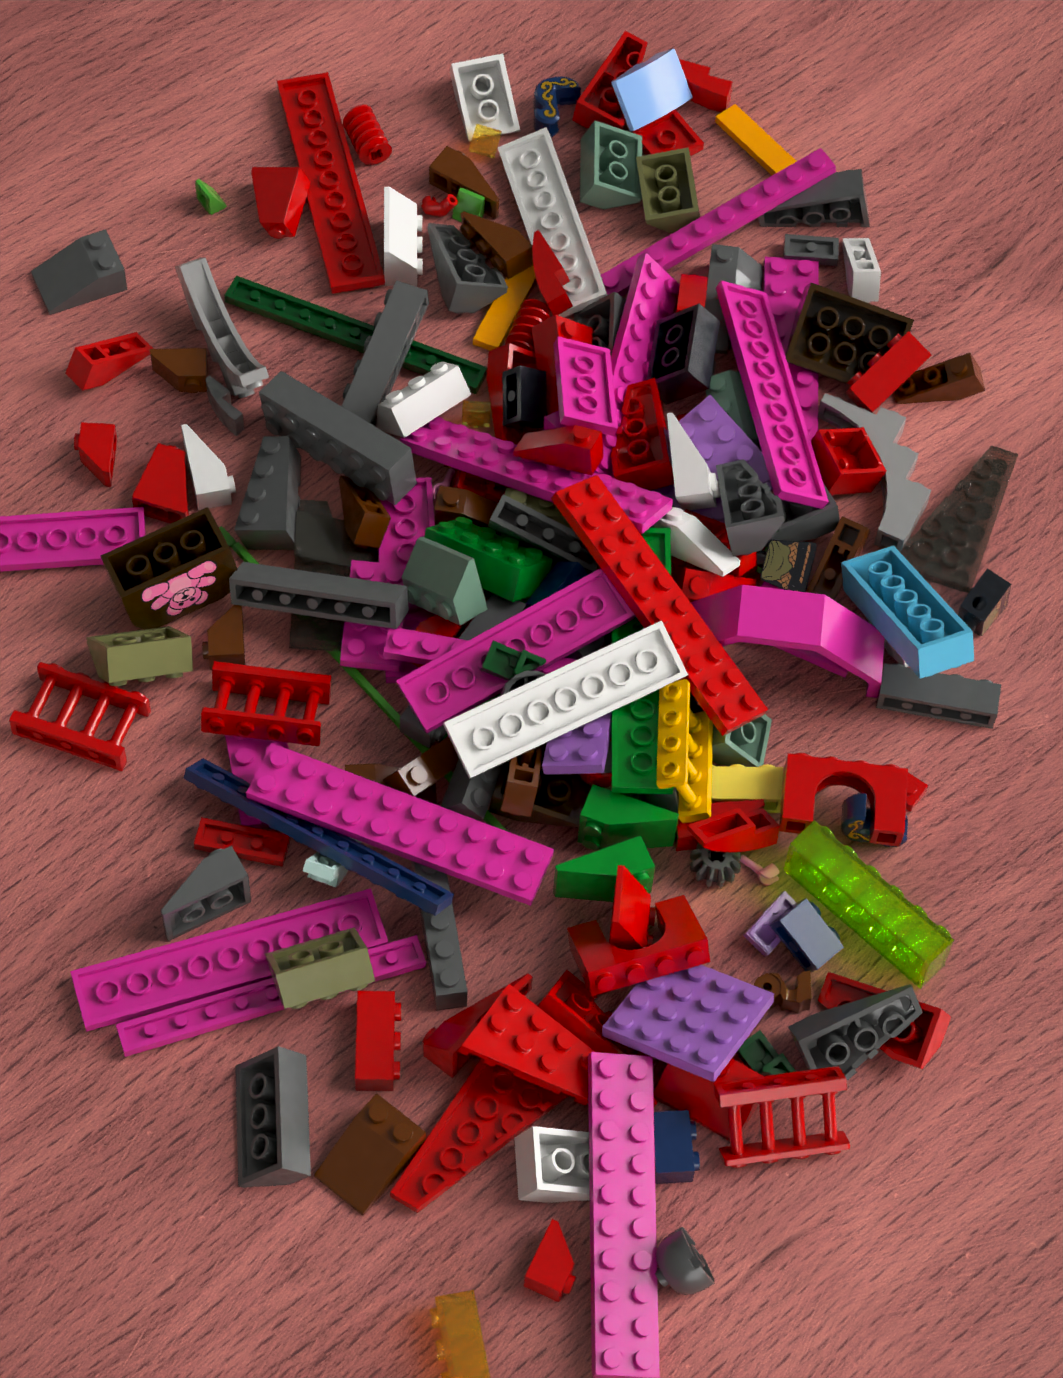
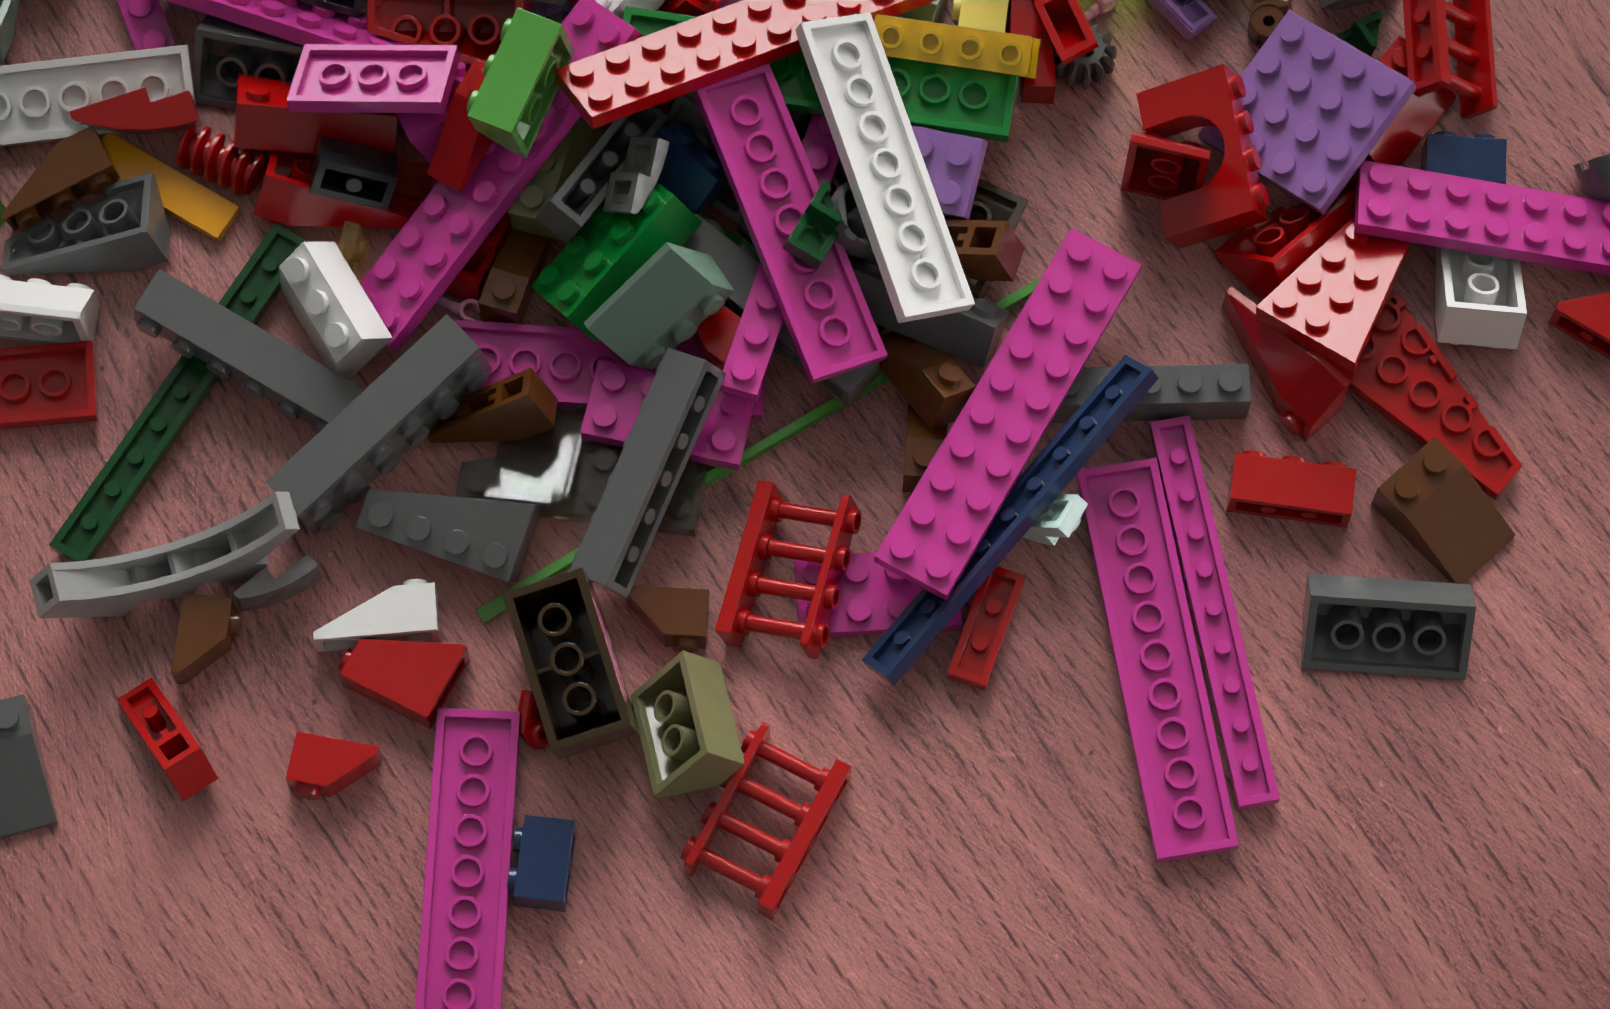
camera: 80 degrees left, 10 degrees up
(38, 584) = (543, 863): none -> dark blue brick
(208, 893) = (1067, 668): dark grey slope -> none
(320, 968) = (1194, 538): olive slope -> none
(527, 547) = (632, 187): none -> flat silver slope
(578, 451) = (520, 81): none -> bright green slope
(595, 873) = (1094, 161): green slope -> none
(617, 818) = (1023, 161): green slope -> none

